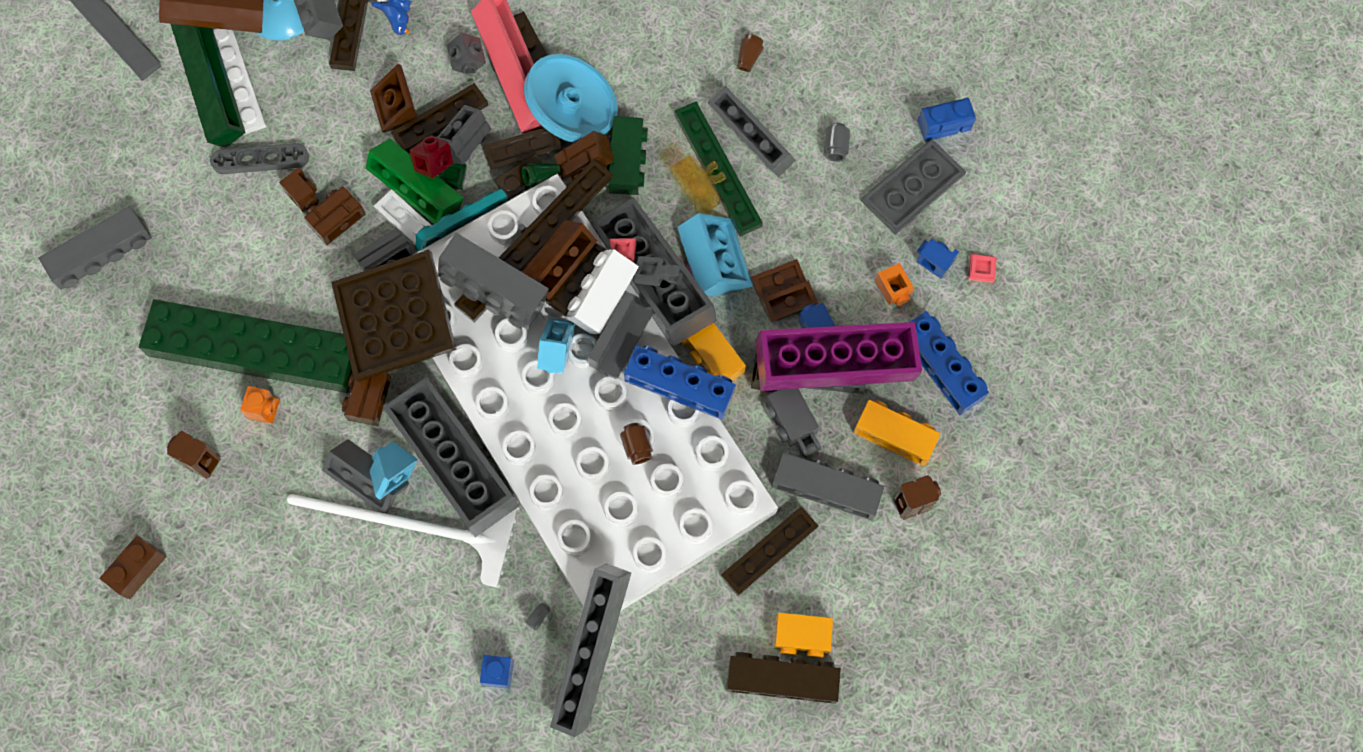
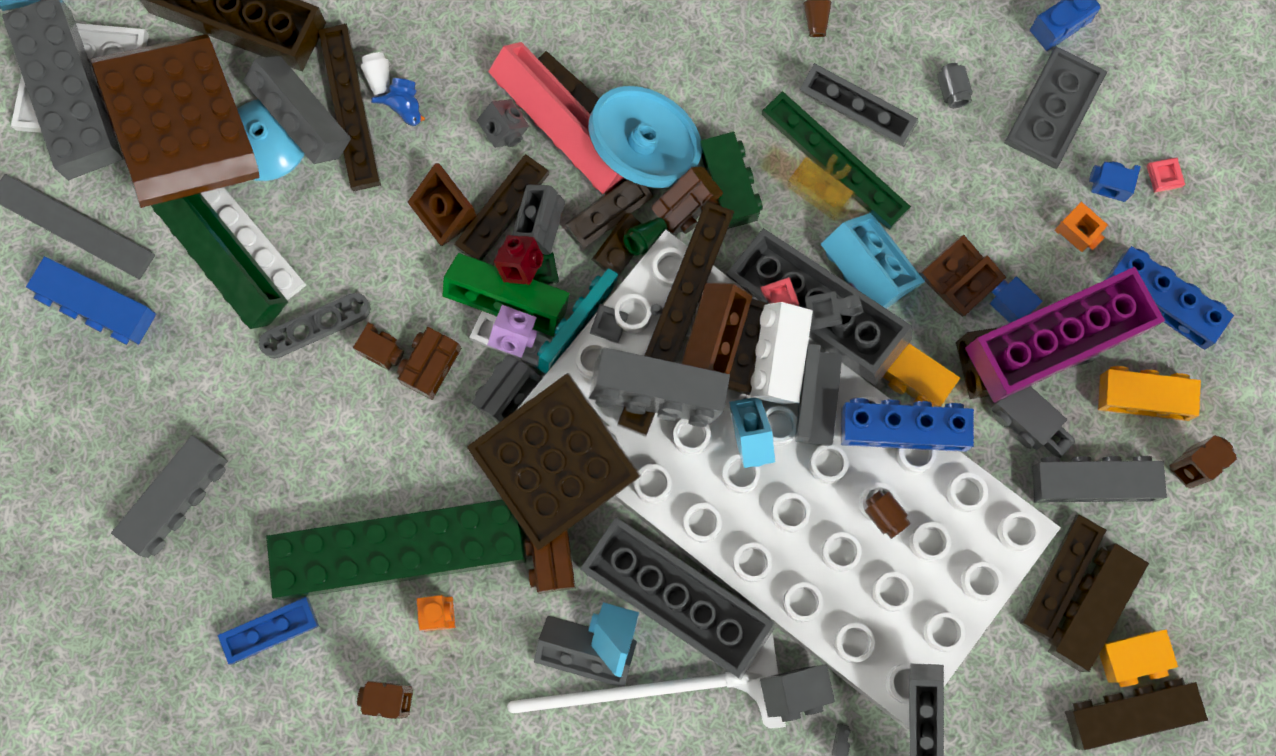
camera: 15 degrees left, 5 degrees up
(97, 82) = (90, 300): none -> blue brick
(127, 374) = (268, 631): none -> blue plate
(405, 210) = (513, 331): none -> lavender brick
(479, 229) = (606, 325): none -> dark grey tile
(515, 561) = (797, 692): none -> dark grey brick
(786, 584) = (1097, 607): none -> dark brown brick

